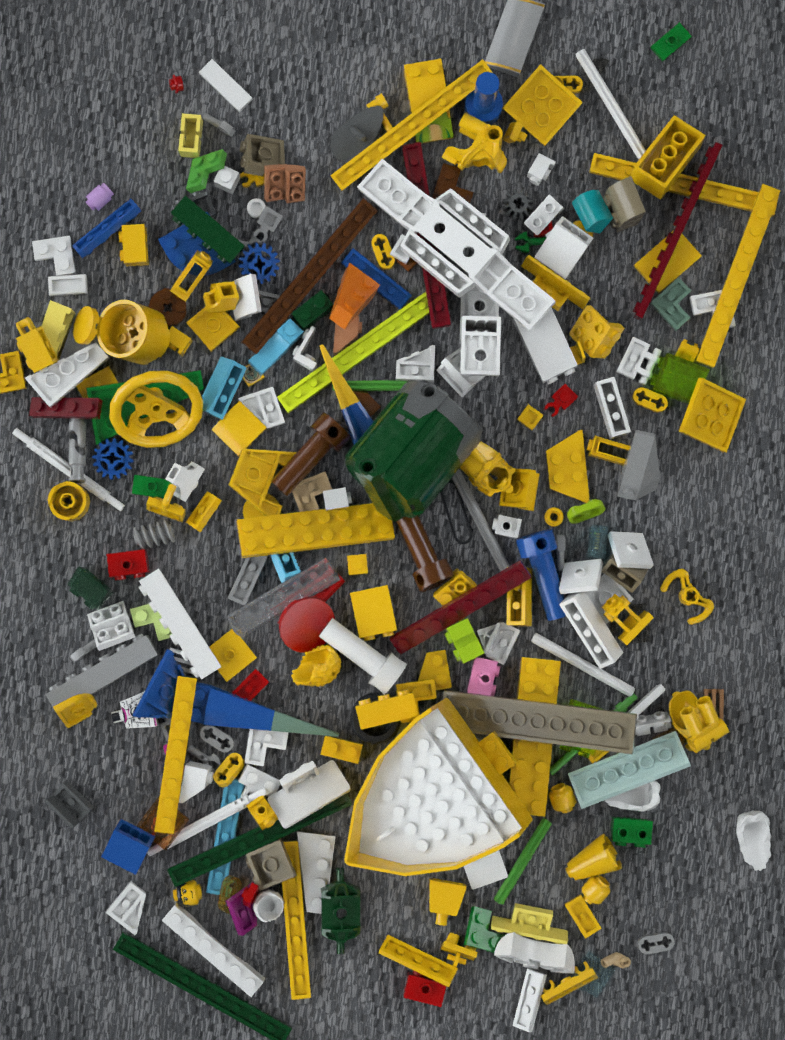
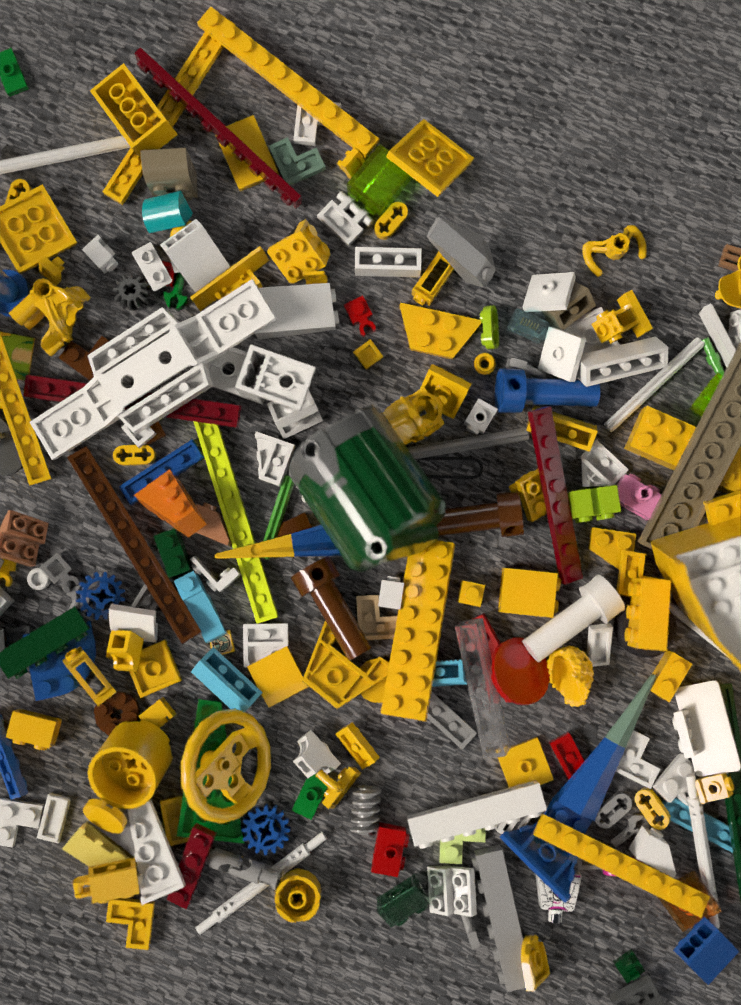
camera: 70 degrees left, 0 degrees up
(94, 791) = (629, 966): none -> dark green tile
(349, 684) = (599, 644): none -> white tile

